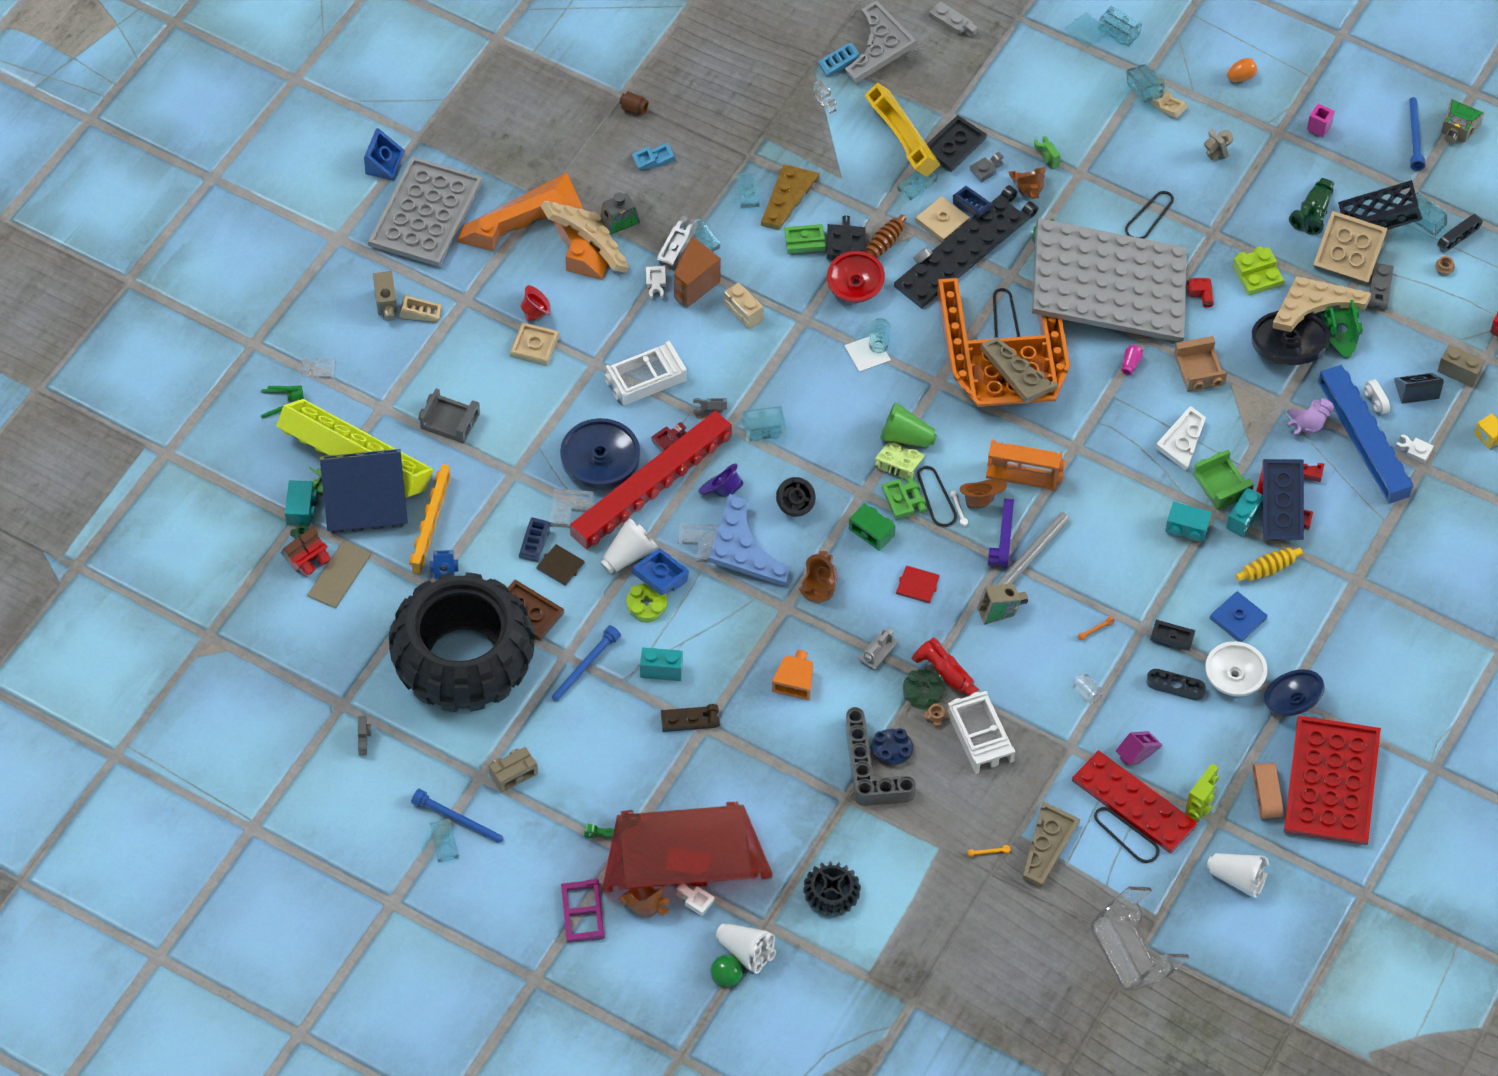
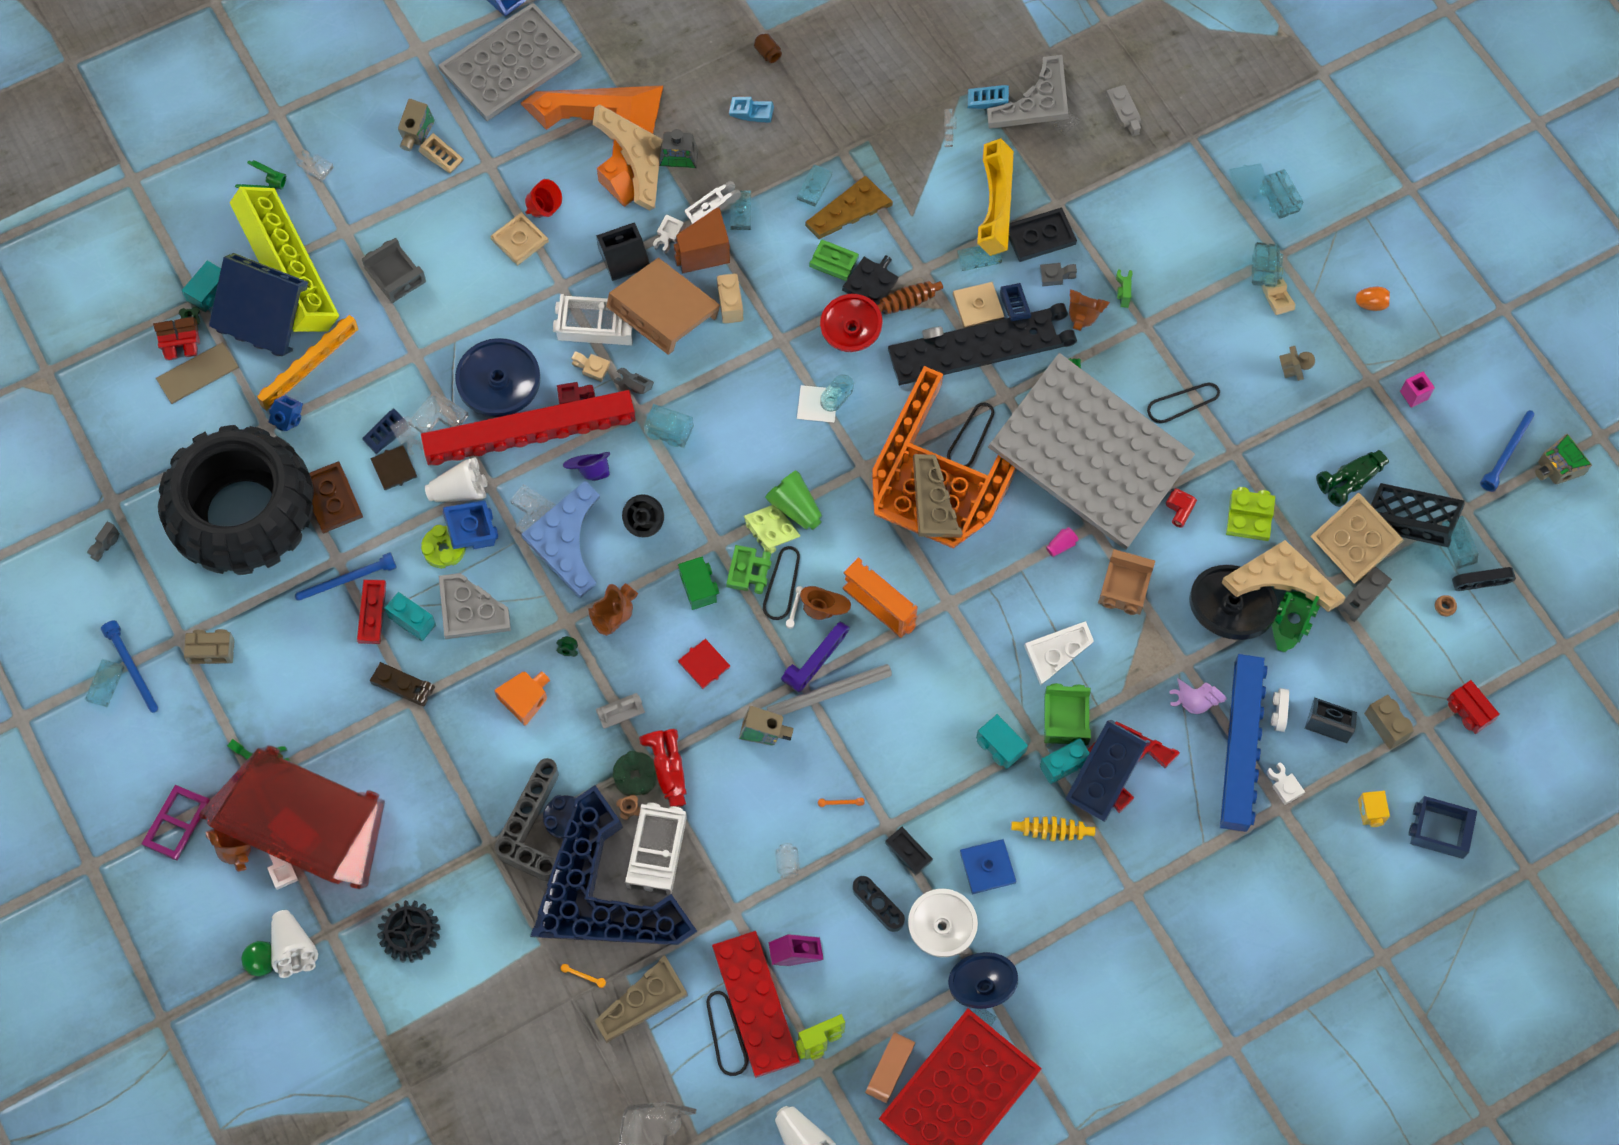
camera: 30 degrees right, 10 degrees up
(555, 530) = (405, 432): none -> clear plate
(625, 677) = (371, 612): none -> red plate
(631, 311) = (622, 251): none -> black slope
(669, 410) = (593, 367): none -> tan plate
(695, 335) = (661, 304): none -> medium nougat panel
(704, 636) = (470, 609): none -> light grey plate
(803, 623) = (567, 646): none -> dark green plate
(951, 806) = (569, 904): none -> dark blue wedge

